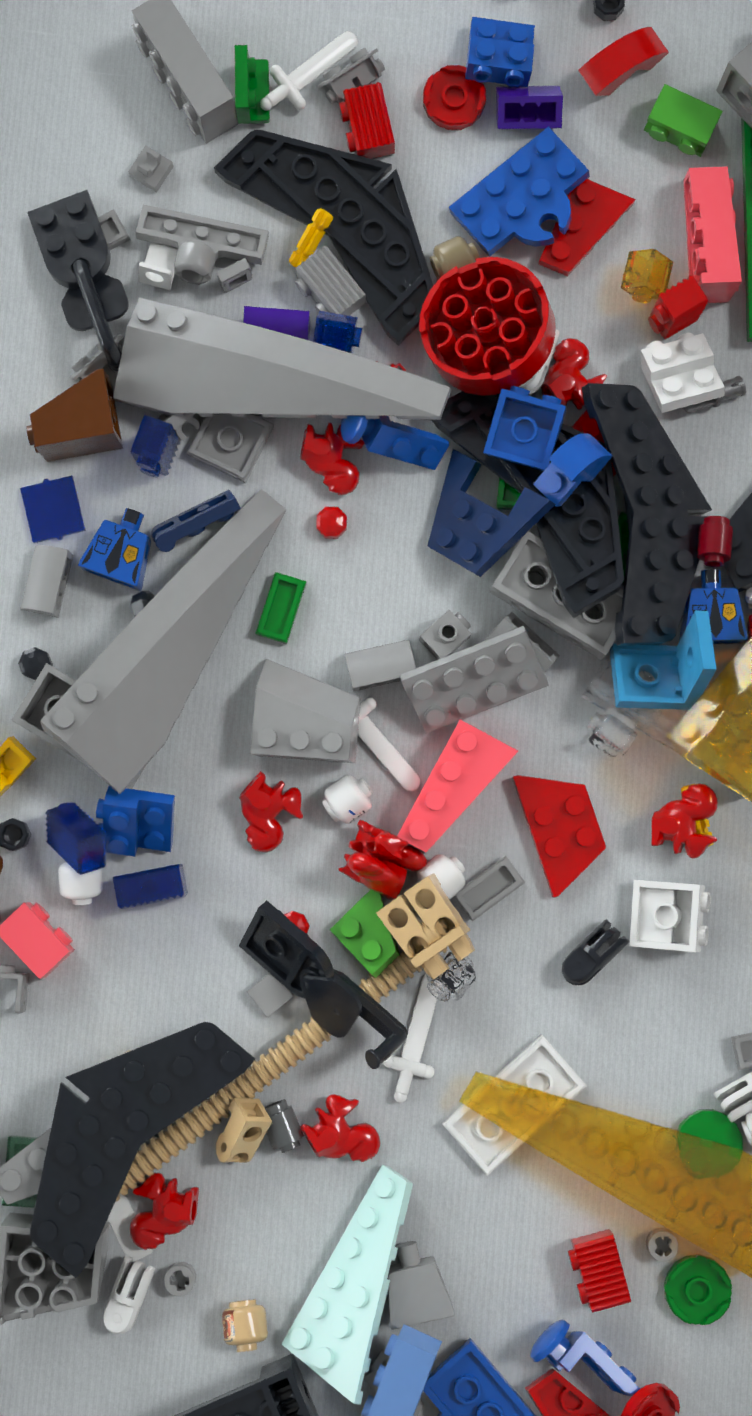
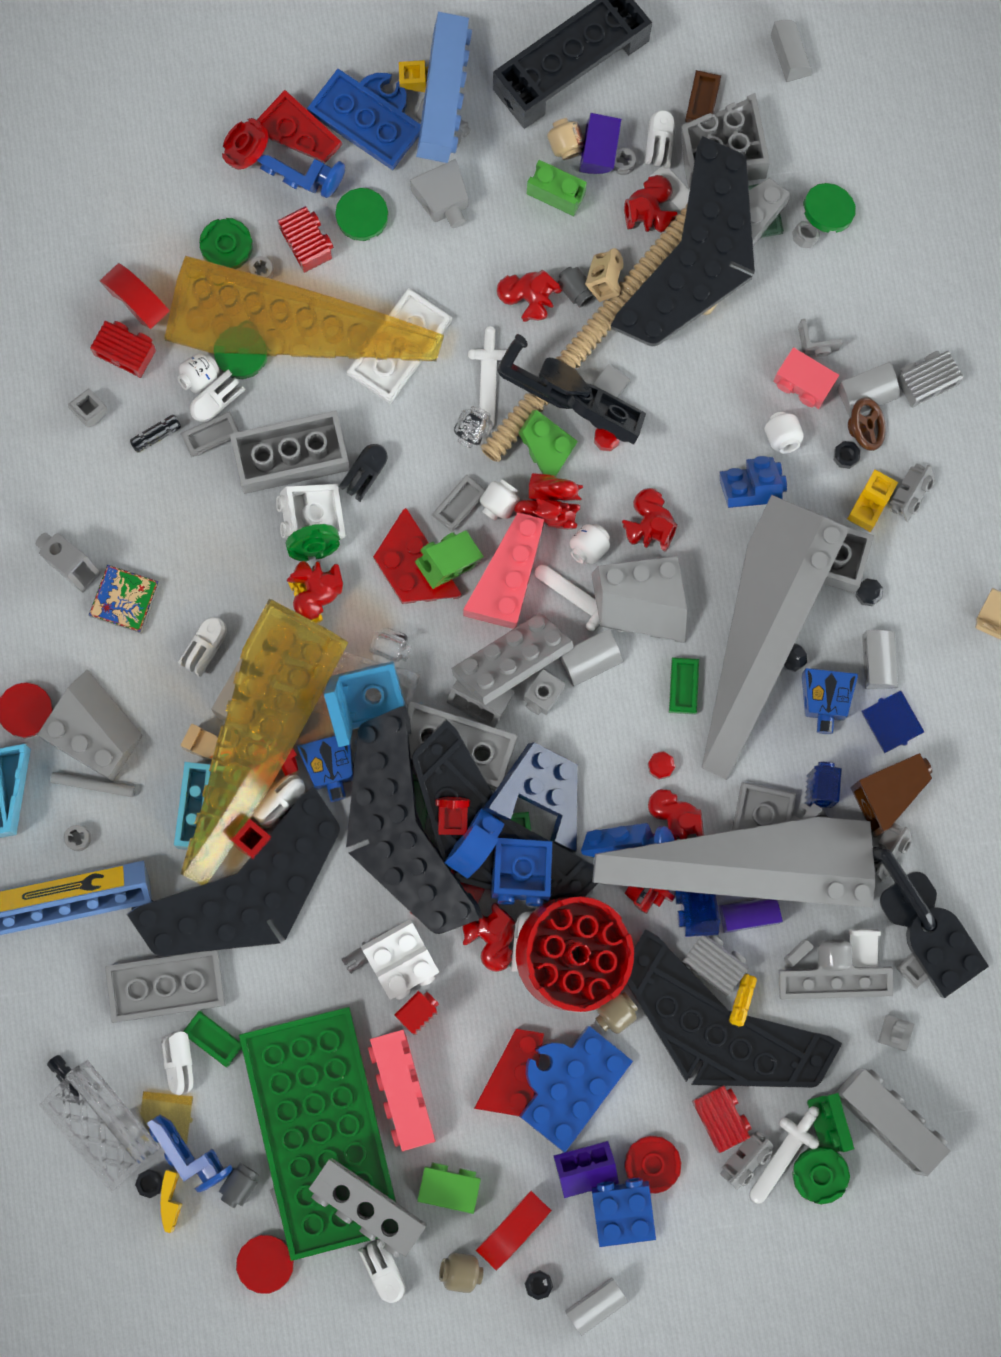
camera: 165 degrees right, 5 degrees down
(58, 1341) = (703, 95): none -> reddish brown tile
(76, 838) = (796, 458): clear blue brick -> none
(150, 886) = (727, 439): clear blue brick -> none
(193, 521) = (774, 737): dark blue plate -> none
(203, 1307) = (600, 144): none -> dark purple brick
(273, 1261) = (556, 188): none -> bright green brick
(276, 39) = (821, 1175): none -> green tile
(349, 1297) = (492, 179): light aqua wing -> none
(425, 924) = (504, 454): tan hips -> none
(519, 818) = (448, 558): none -> bright green brick
(521, 1288) = (361, 214): none -> green tile
(590, 507) = (452, 815): none -> red tile
(646, 274) = (449, 1038): clear yellow brick -> none
(676, 878) = (312, 541): none -> green tile
(679, 997) = (289, 452): none -> light grey brick
(690, 33) = (460, 1272): none -> dark tan head
(715, 541) = (341, 820): dark red brick -> none

